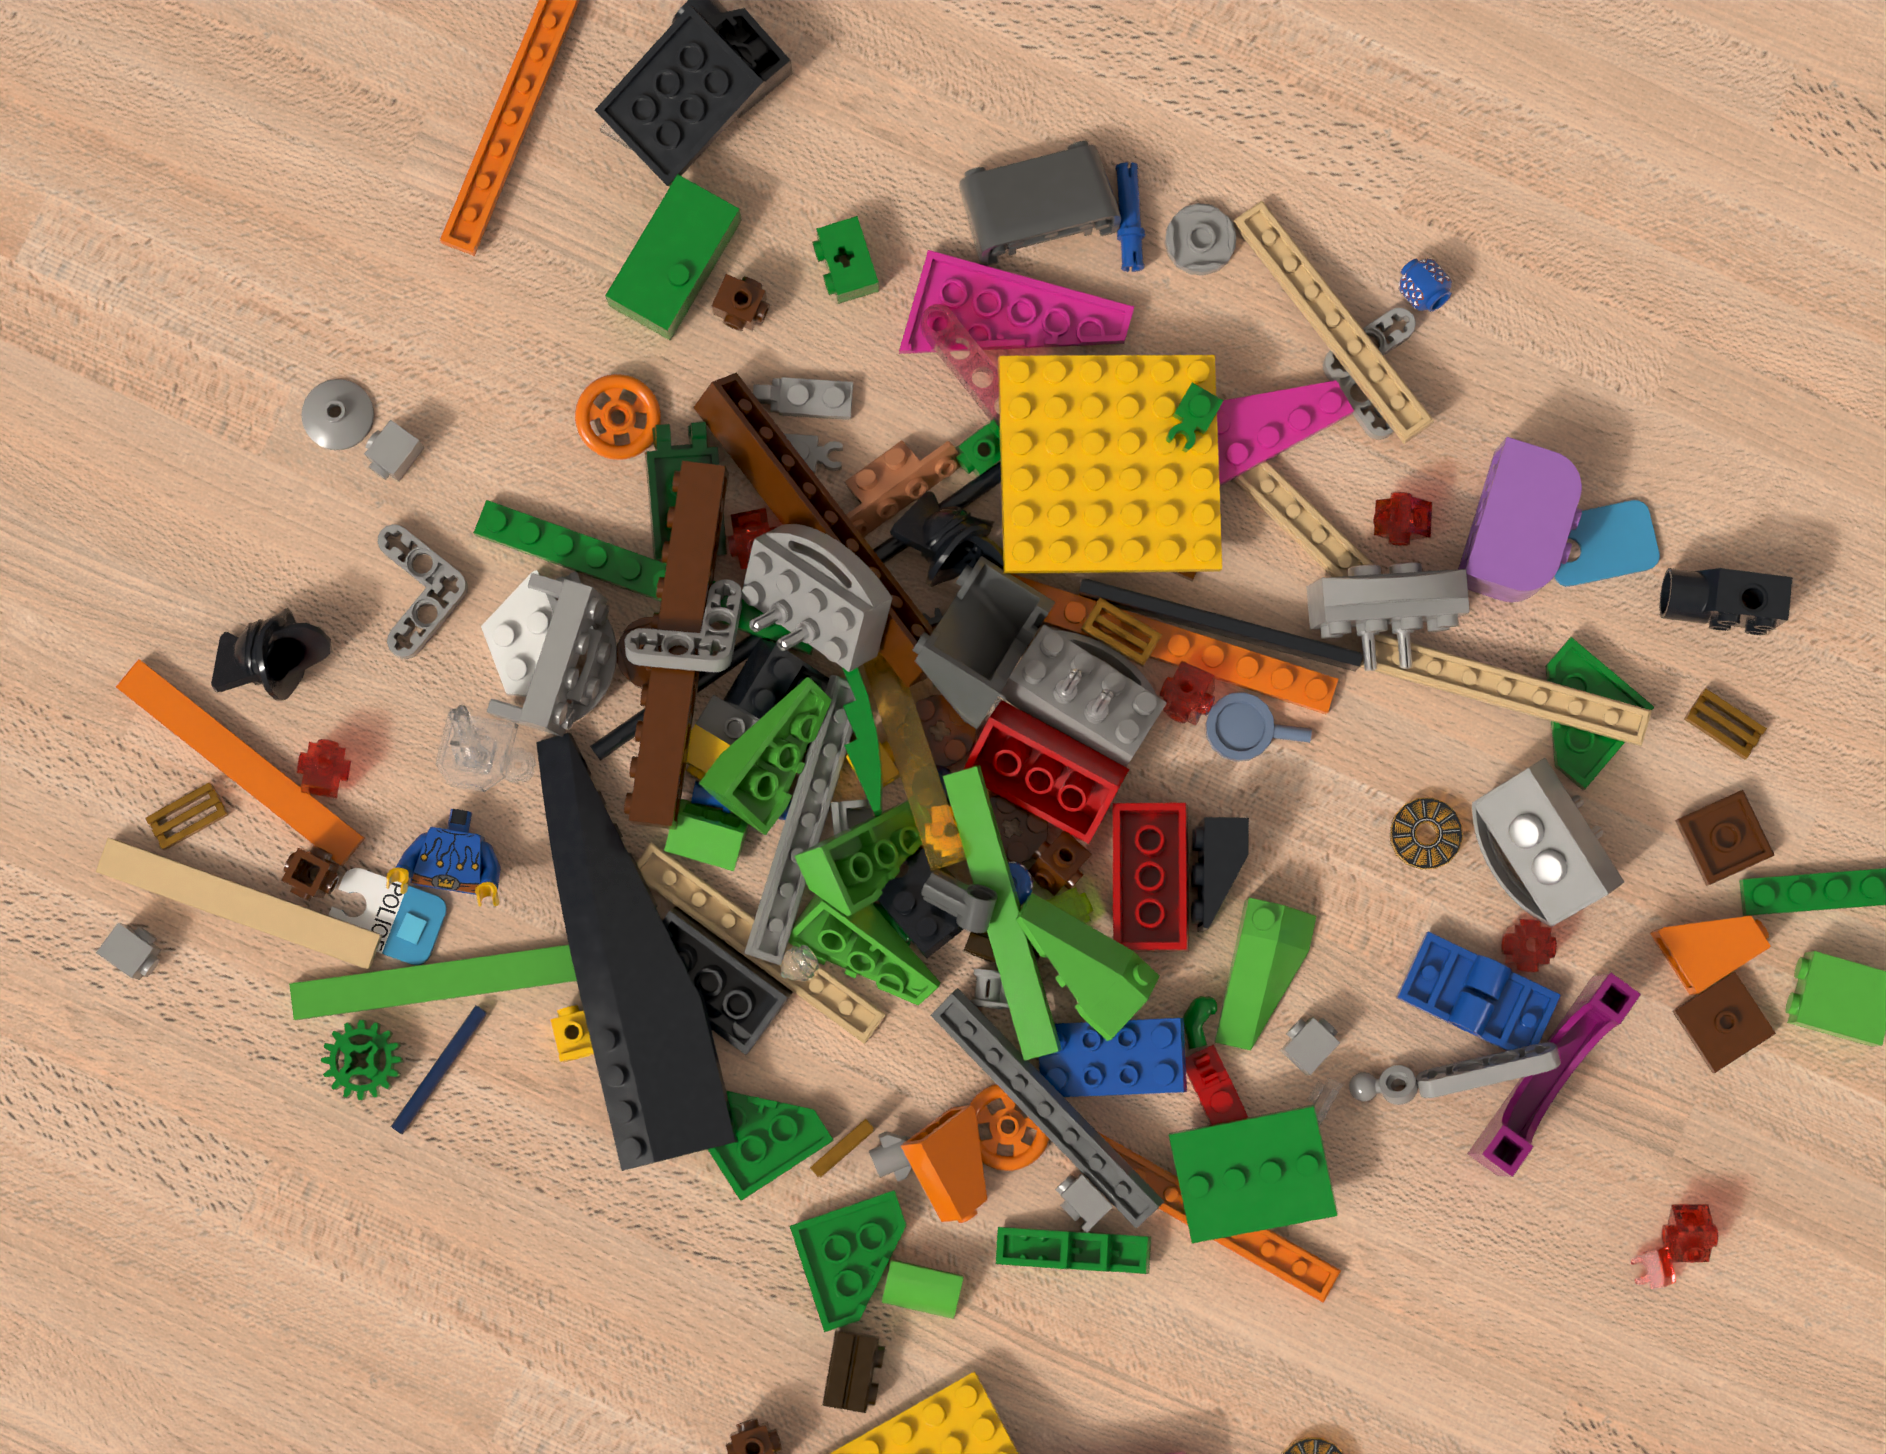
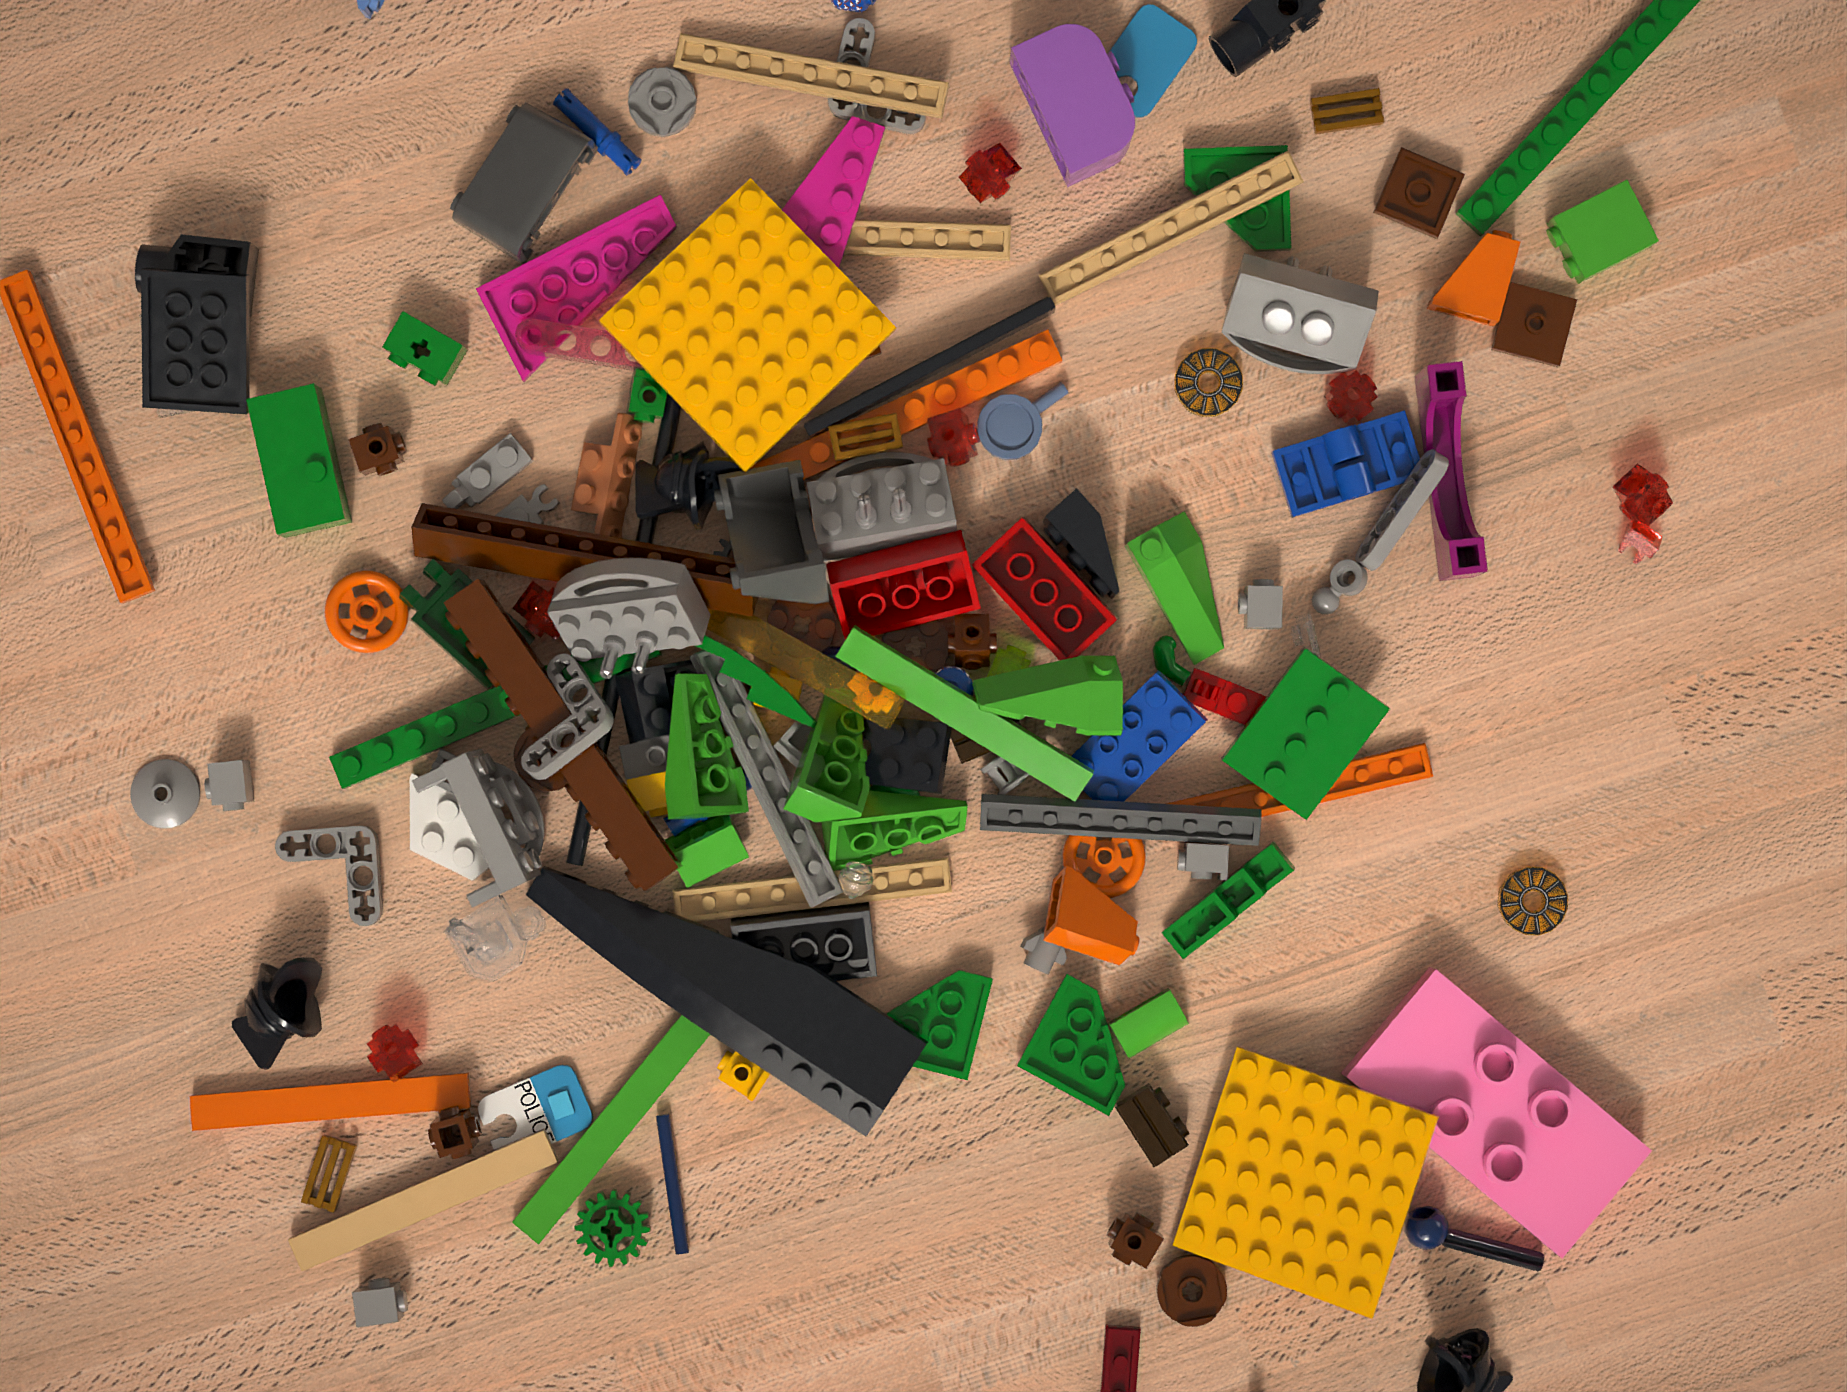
camera: 35 degrees left, 5 degrees up
(450, 861) = (544, 1033): torso -> none
(842, 1148) = (1004, 978): pearl gold tile -> none
(969, 903) = (938, 728): dark grey piece -> none
(1195, 413) = (775, 232): green plate -> none
(1376, 600) = (1041, 232): light grey piece -> none

